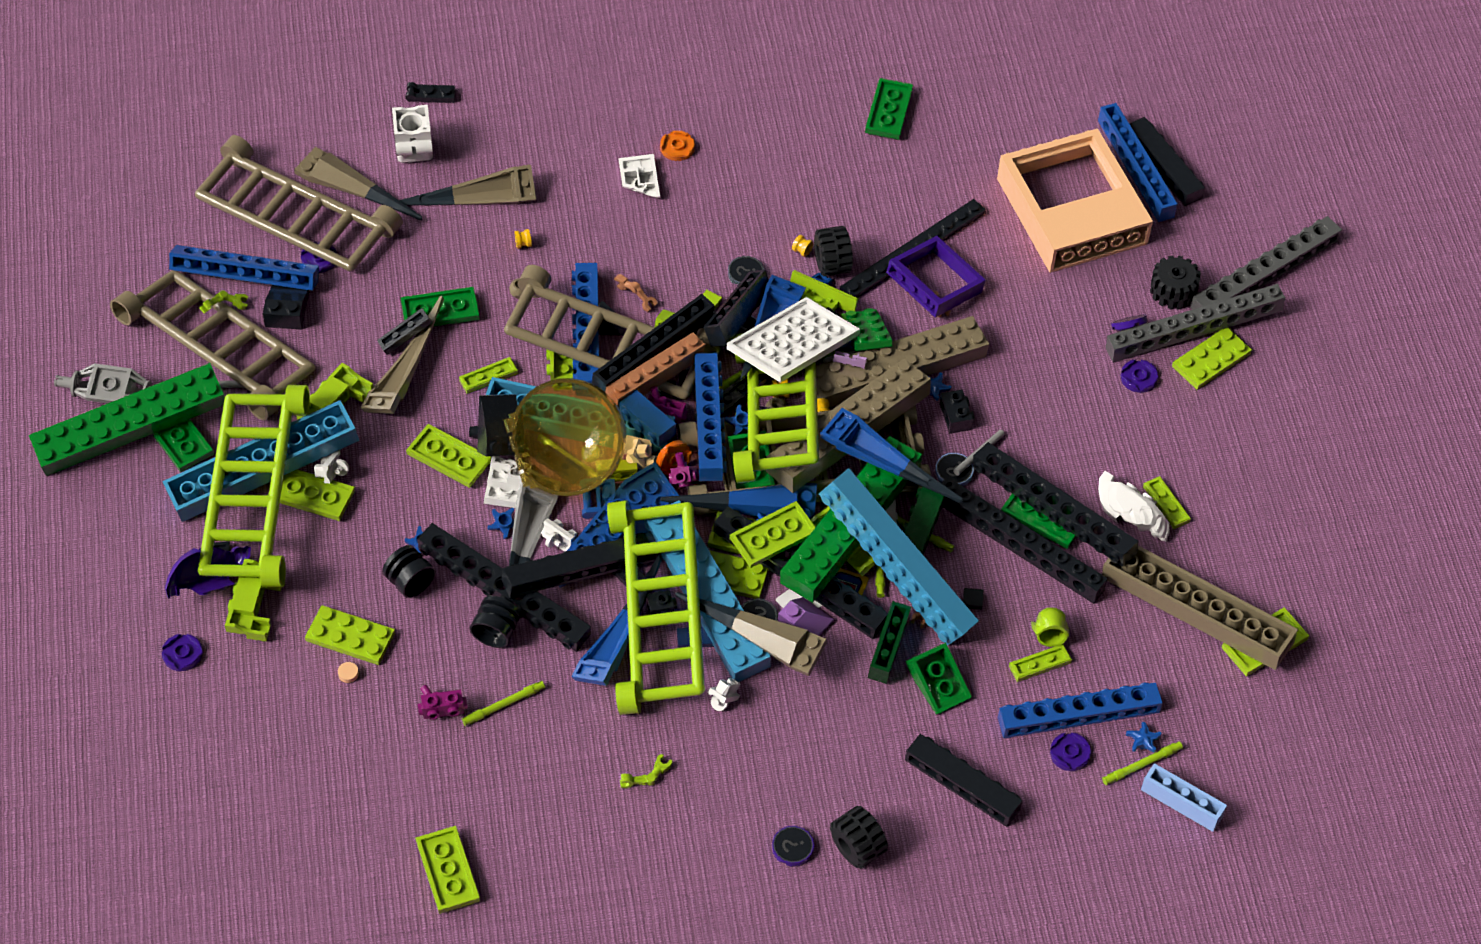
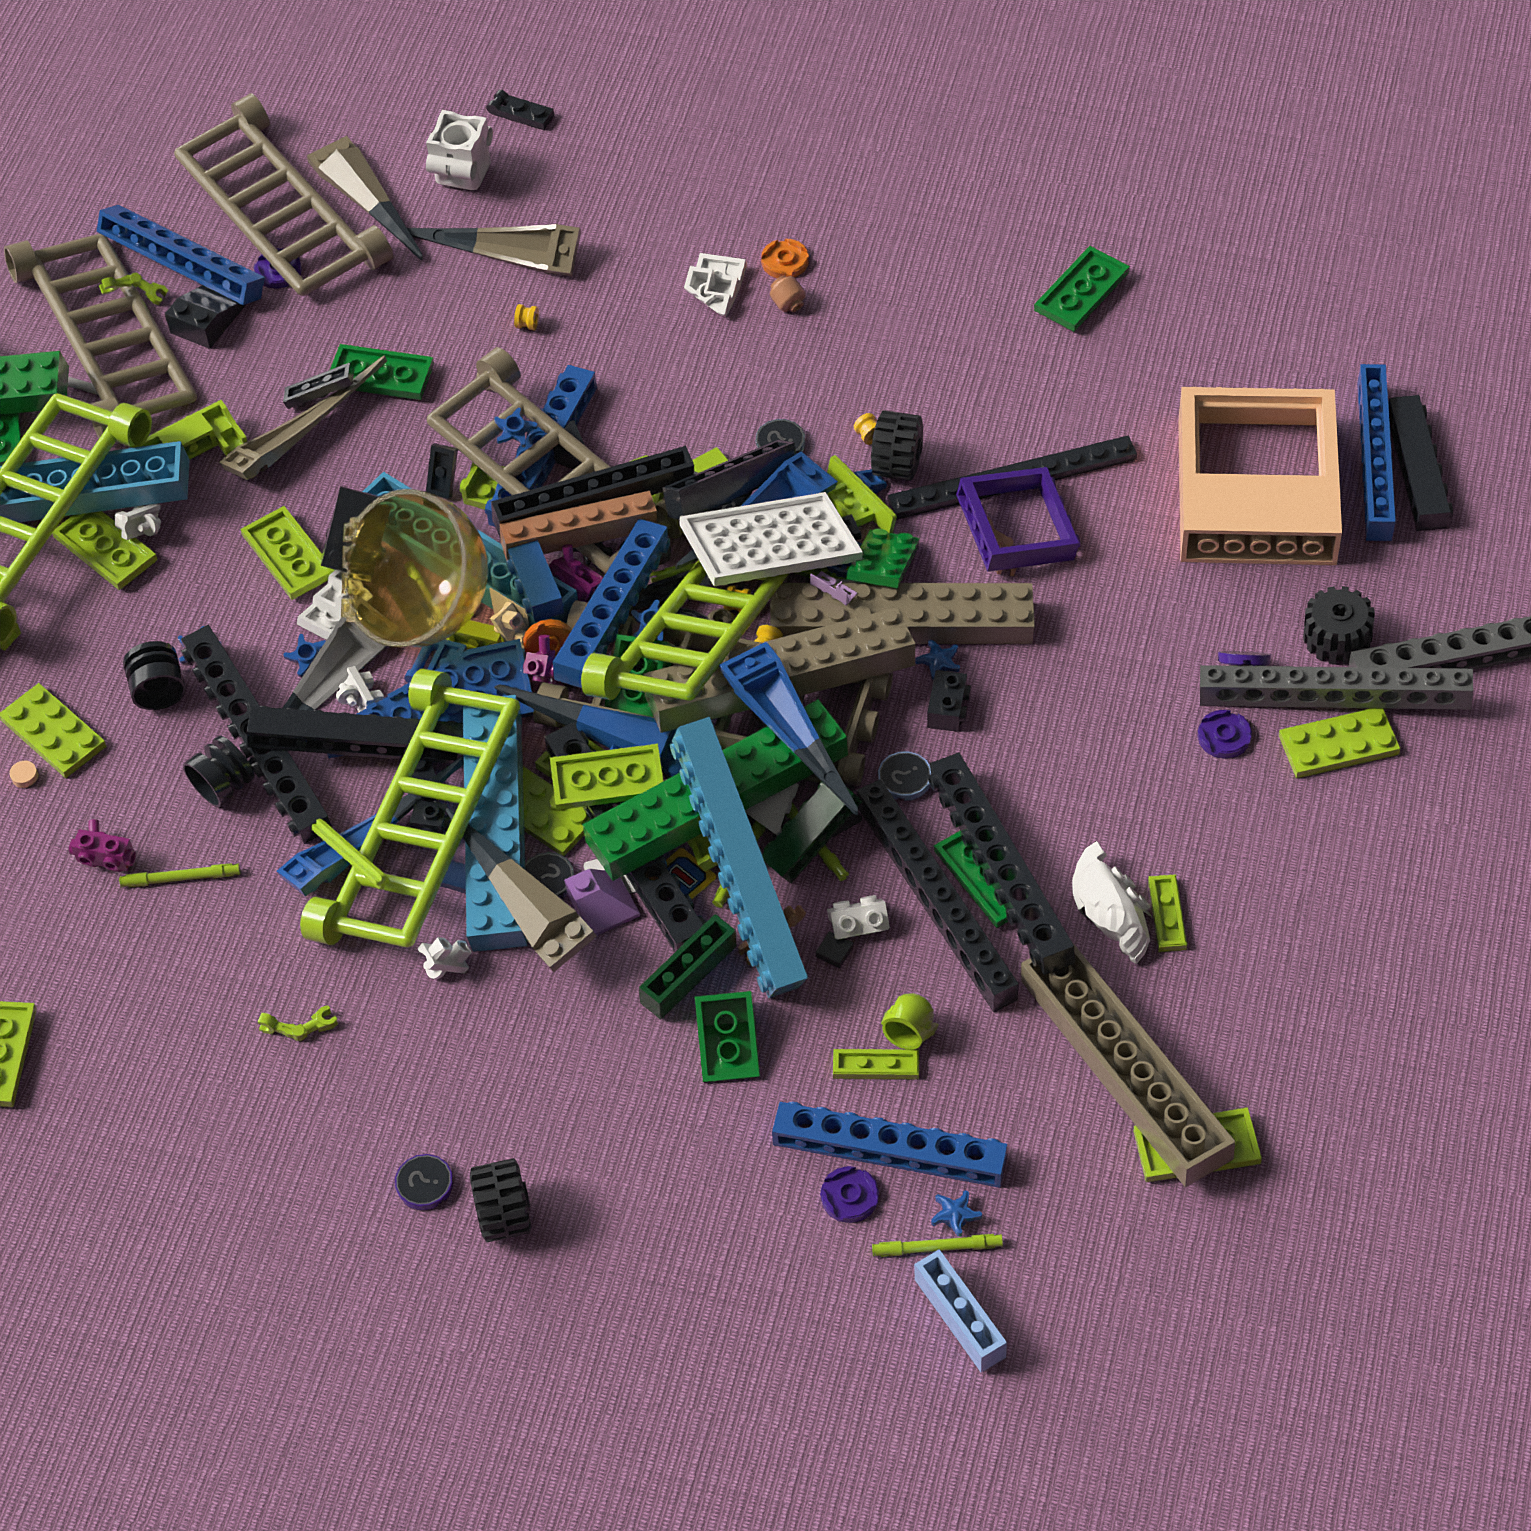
camera: 30 degrees right, 0 degrees up
(481, 377) = (403, 469): lime tile -> none
(529, 364) = (441, 470): none -> black plate
(572, 317) = (514, 427): none -> blue animal
(624, 284) = (625, 417): nougat piece -> none
(626, 645) = (350, 854): none -> lime axle
(695, 169) = (787, 293): none -> nougat head
(963, 779) = (685, 1178): black brick -> none
(969, 460) = (968, 756): light grey bar -> none
(979, 572) = (858, 918): none -> white bracket

